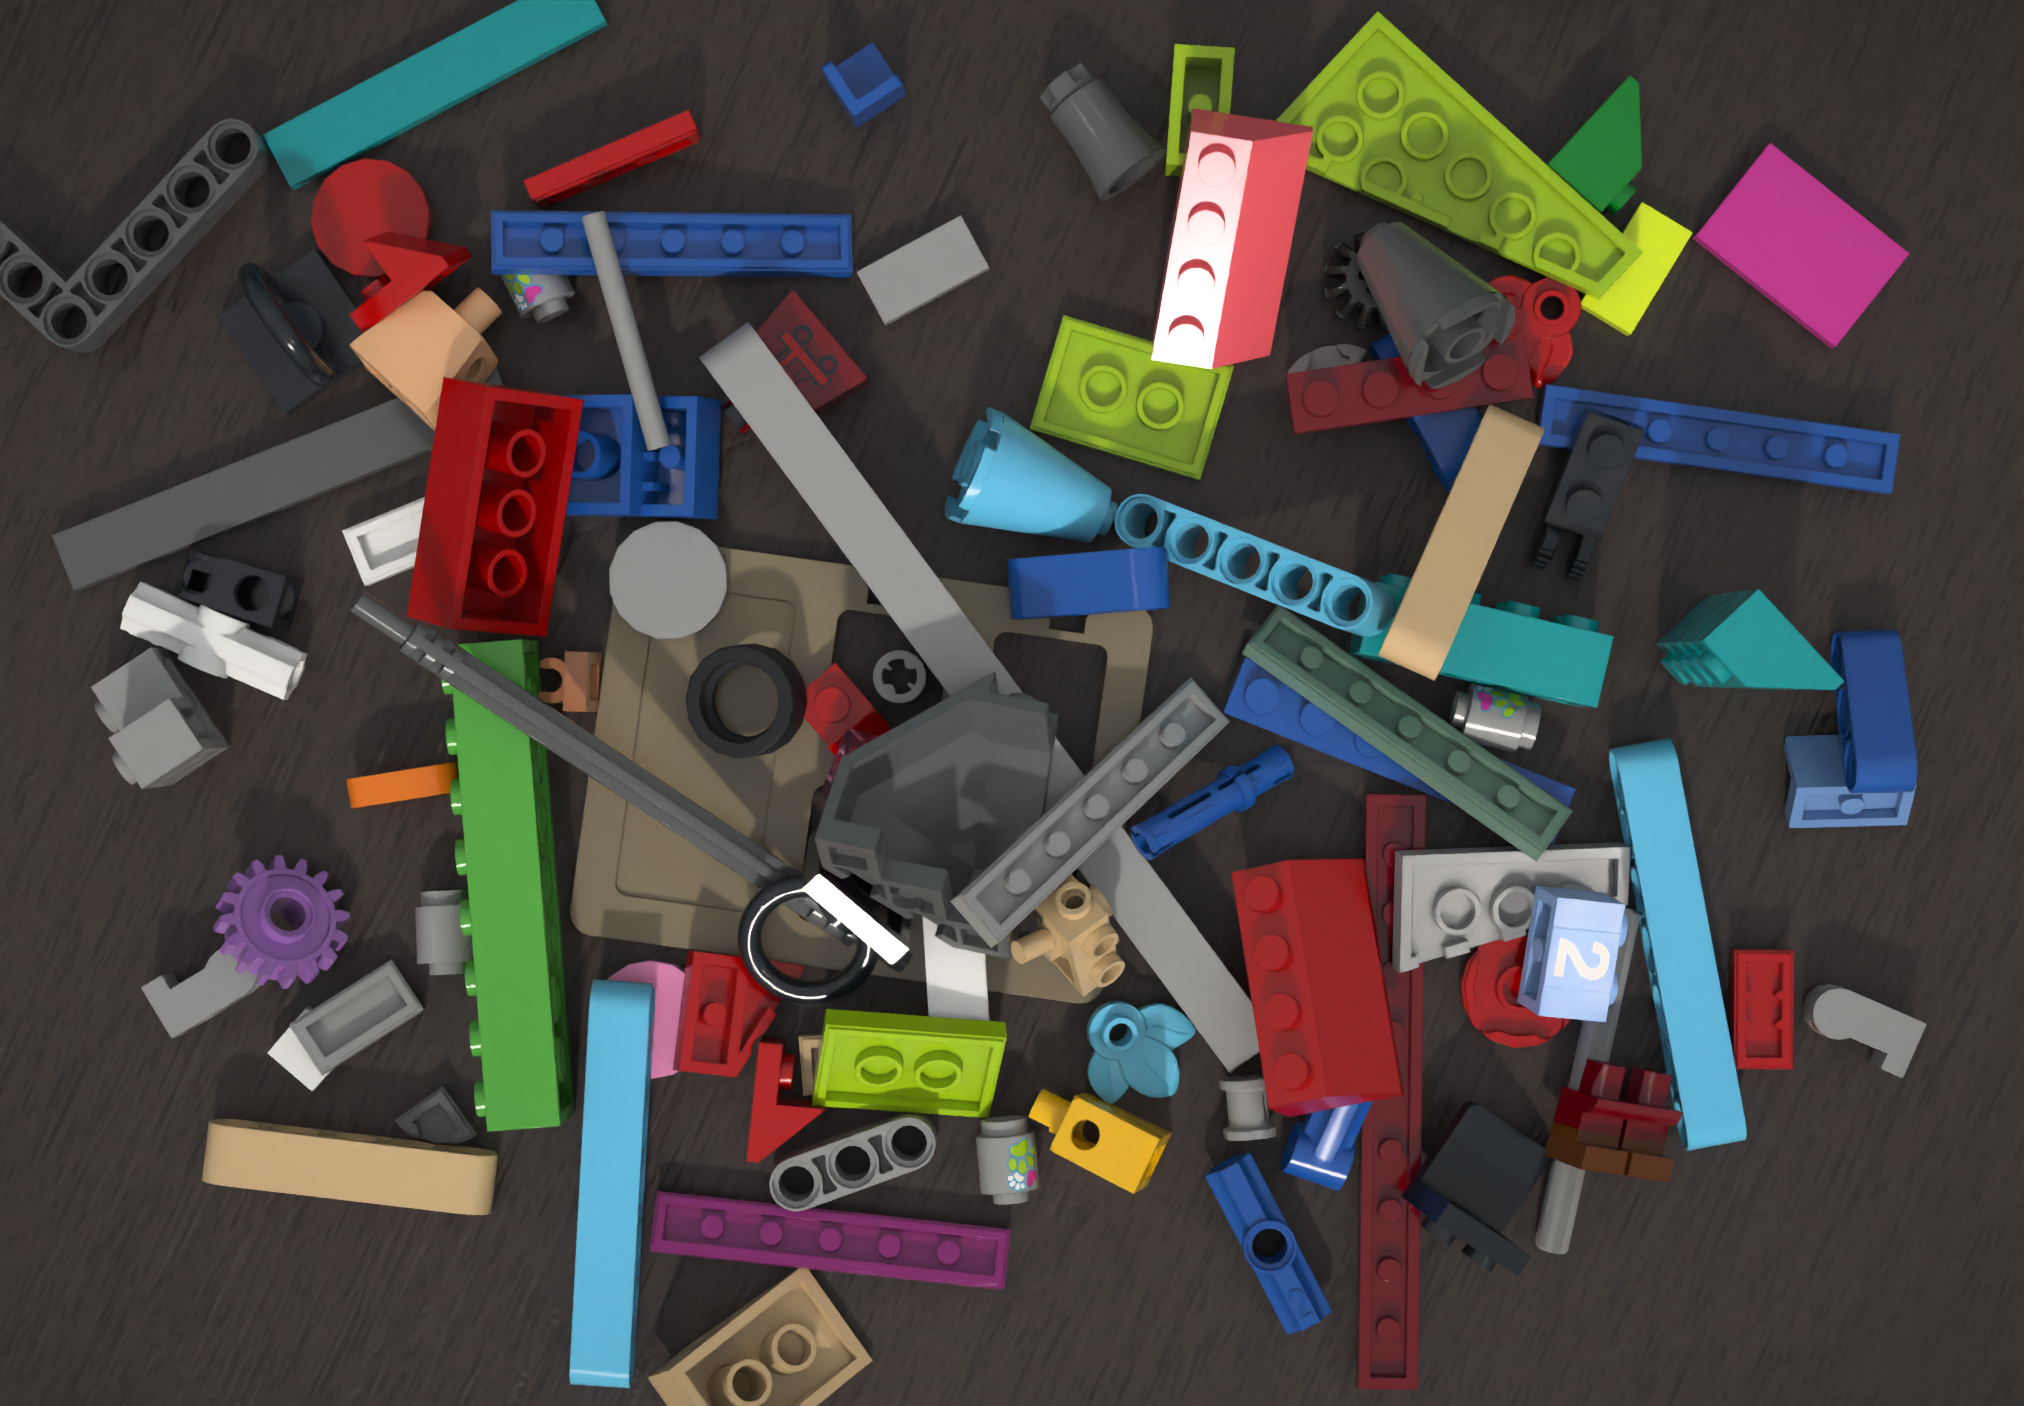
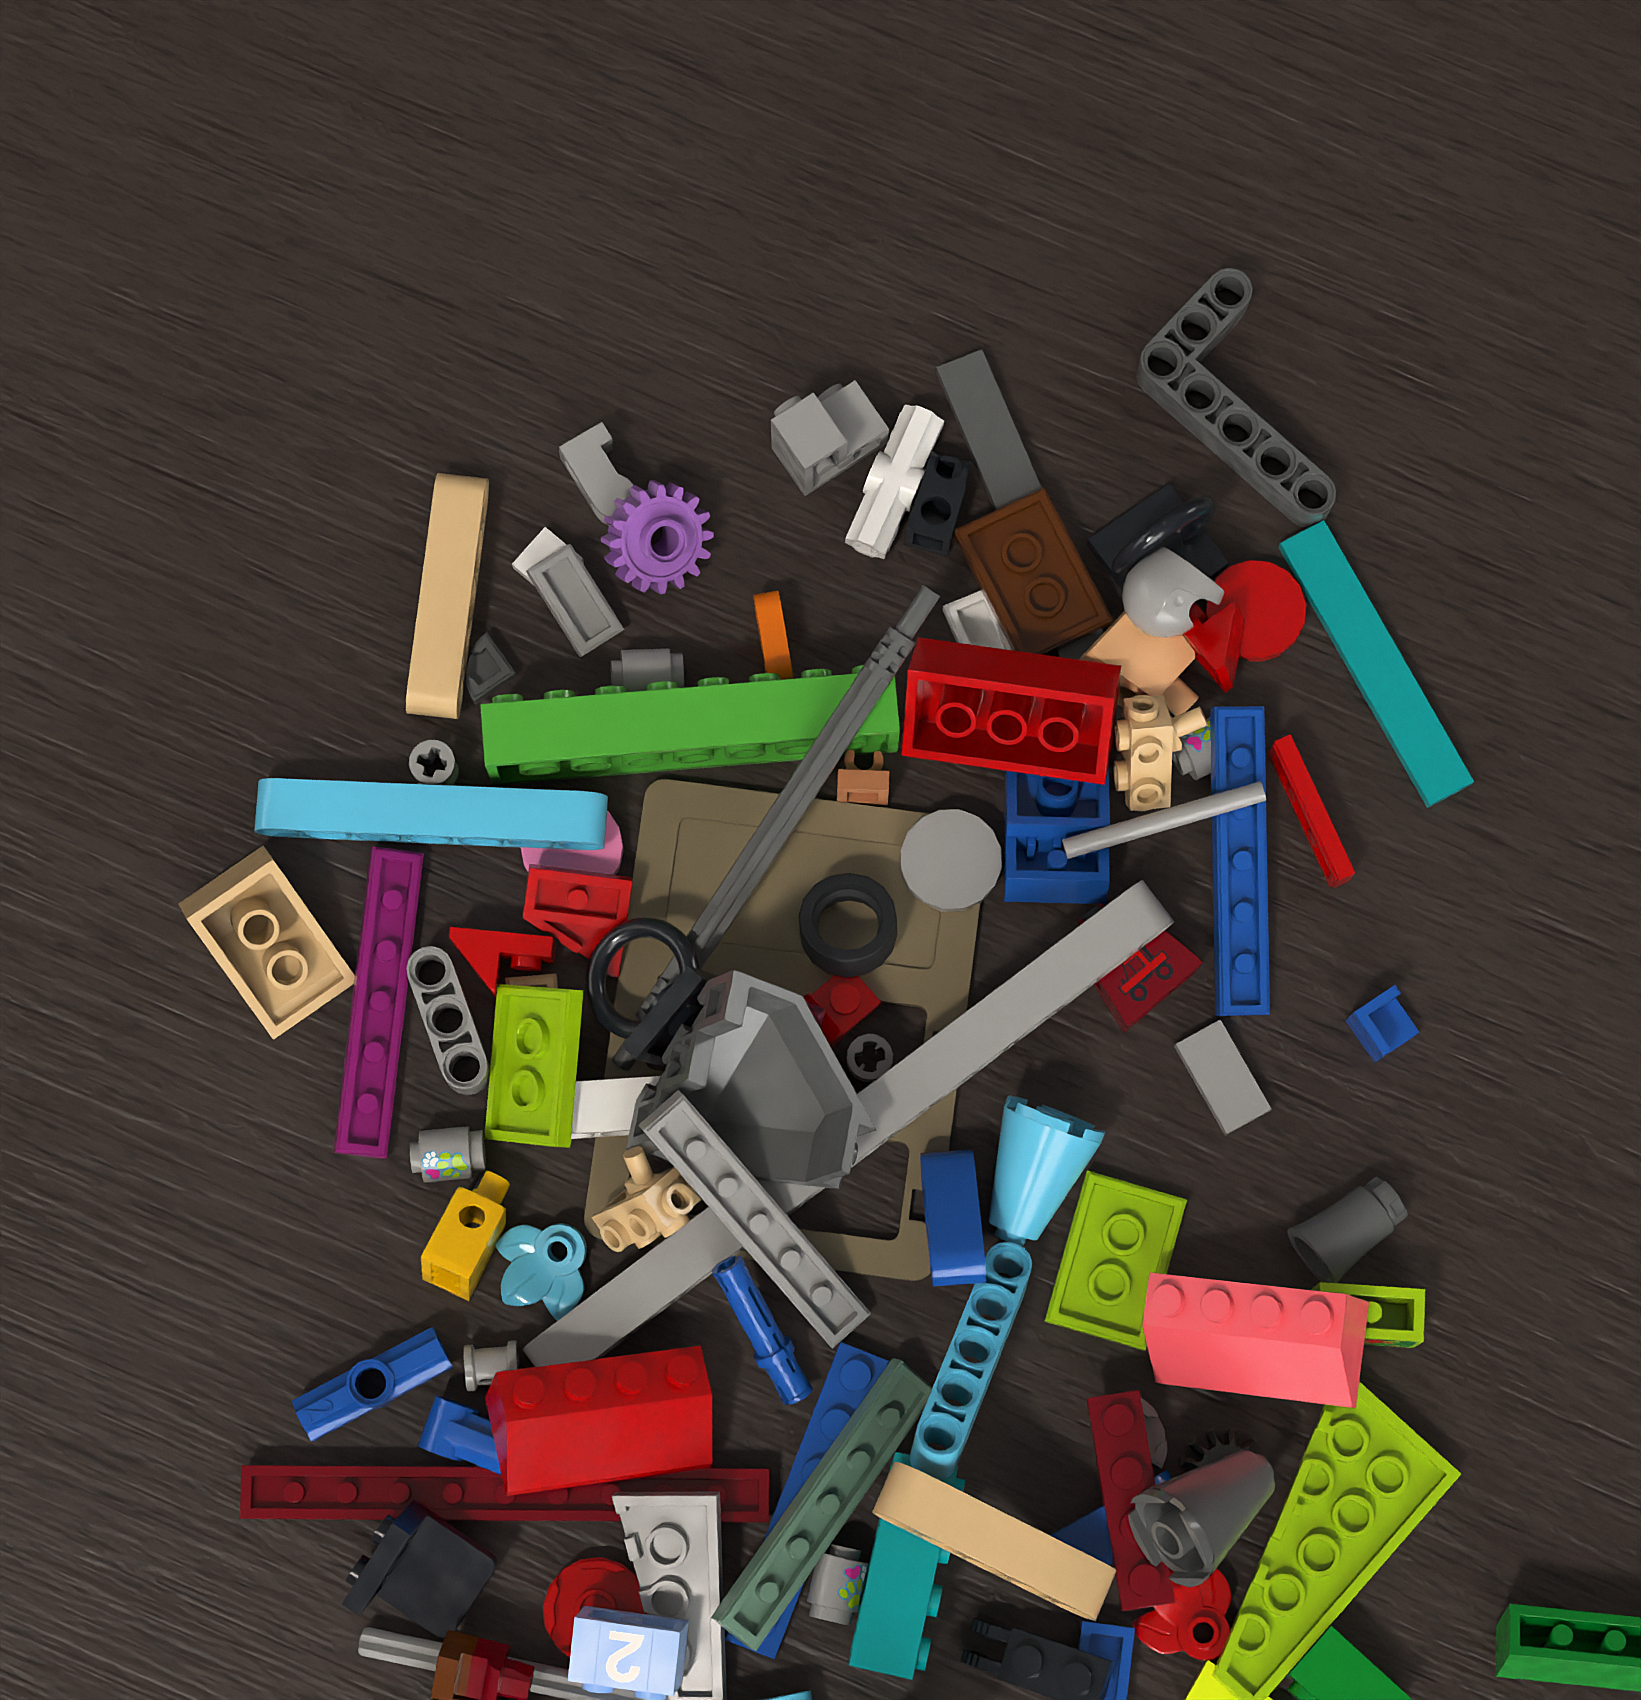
camera: 85 degrees right, 10 degrees down
(330, 479) = (1032, 576): none -> reddish brown tile
(355, 326) = (1162, 591): none -> light grey helmet
(538, 349) = (1146, 746): none -> tan brick
(539, 1188) = (425, 754): none -> light grey bush

